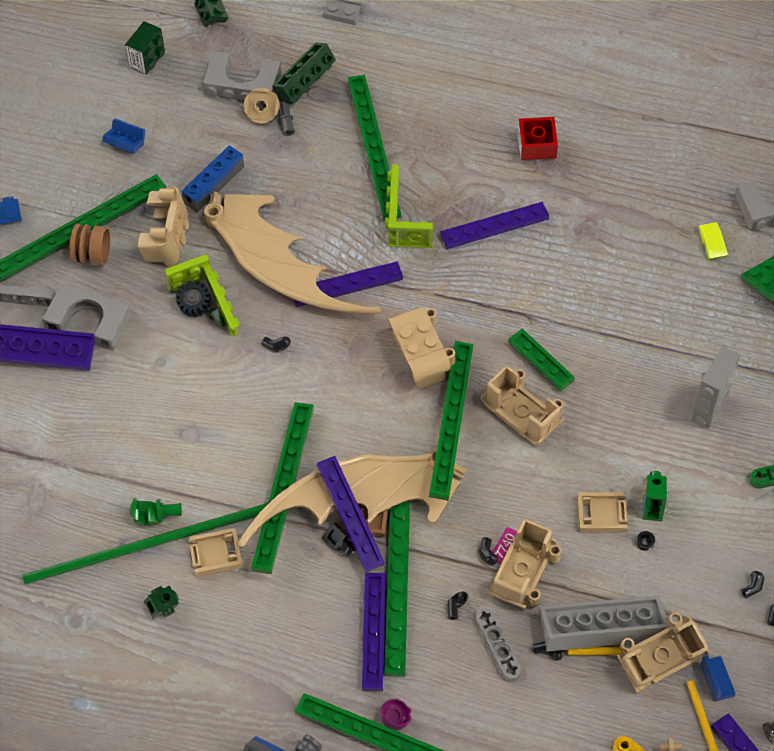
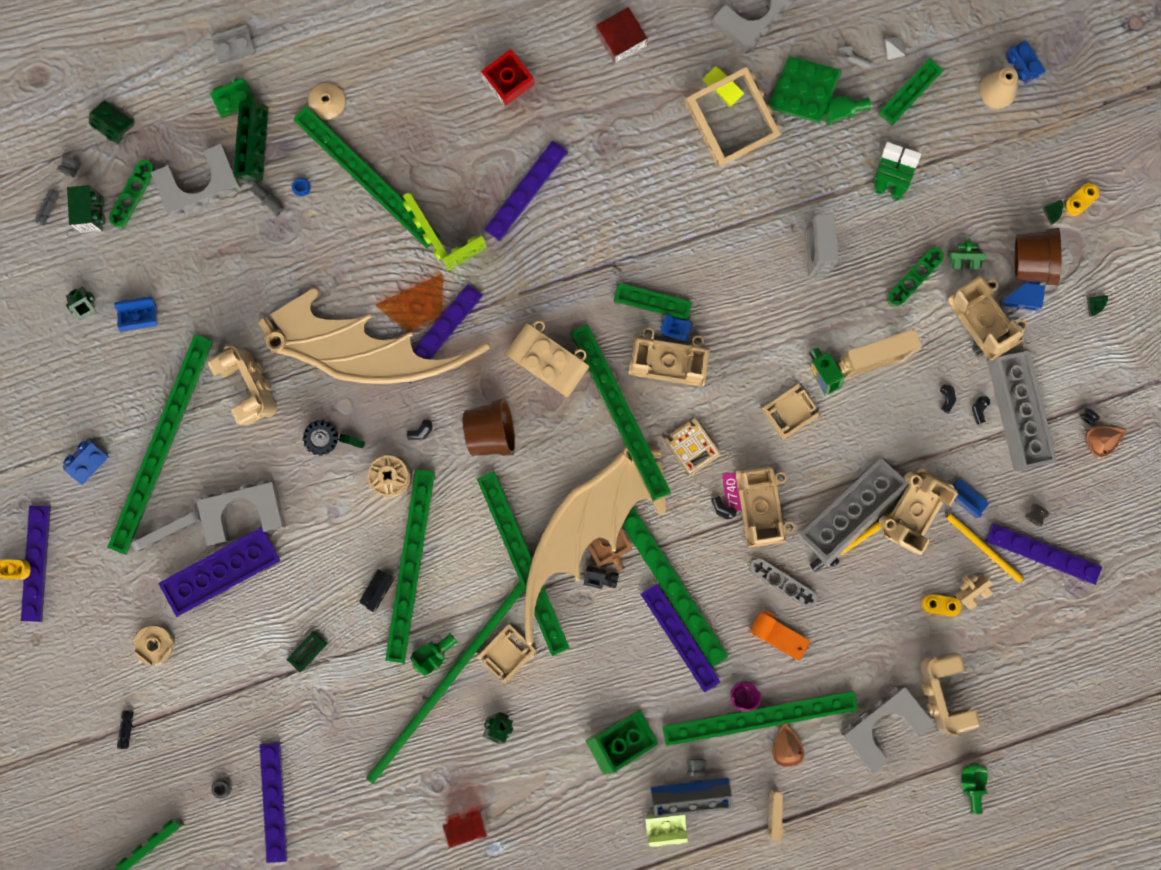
camera: 30 degrees left, 25 degrees up
(56, 452) = (312, 657): none -> dark green tile
(71, 661) = (465, 827): none -> clear red brick
(85, 109) = (80, 303): none -> dark green brick
(90, 244) = (188, 448): medium nougat wheel -> none
(118, 36) = (46, 207): none -> dark grey axle
(148, 437) = (376, 590): none -> black bracket
(156, 18) = (68, 166): none -> dark grey wheel
(187, 60) = (129, 192): none -> green beam
(188, 436) = (410, 566): none -> green plate
(198, 270) = (304, 414): lime bracket -> none
(213, 178) = (248, 305): blue piece -> none
(225, 356) = (400, 472): none -> tan wheel
(254, 112) = (232, 192): tan plate -> none
(258, 683) = (621, 742): none -> green slope
(309, 35) = (228, 97): none -> green bracket
(318, 125) = (301, 187): none -> blue plate
(333, 367) = (489, 429): none -> reddish brown piece
(344, 254) = (416, 305): none -> clear orange wing
(350, 514) = (597, 555): dark purple plate -> none
(383, 83) = (331, 108): none -> tan dish
(455, 603) = (726, 570): black arm -> none
(461, 683) = (779, 636): none -> orange door
(495, 482) = (689, 443): none -> tan container
(545, 389) = (676, 328): none -> blue bracket
(643, 534) = (844, 410): black bush -> none
(652, 160) = (621, 35): none -> clear red brick
(704, 294) = (705, 130): none -> tan window
(705, 514) = (879, 354): none -> tan window

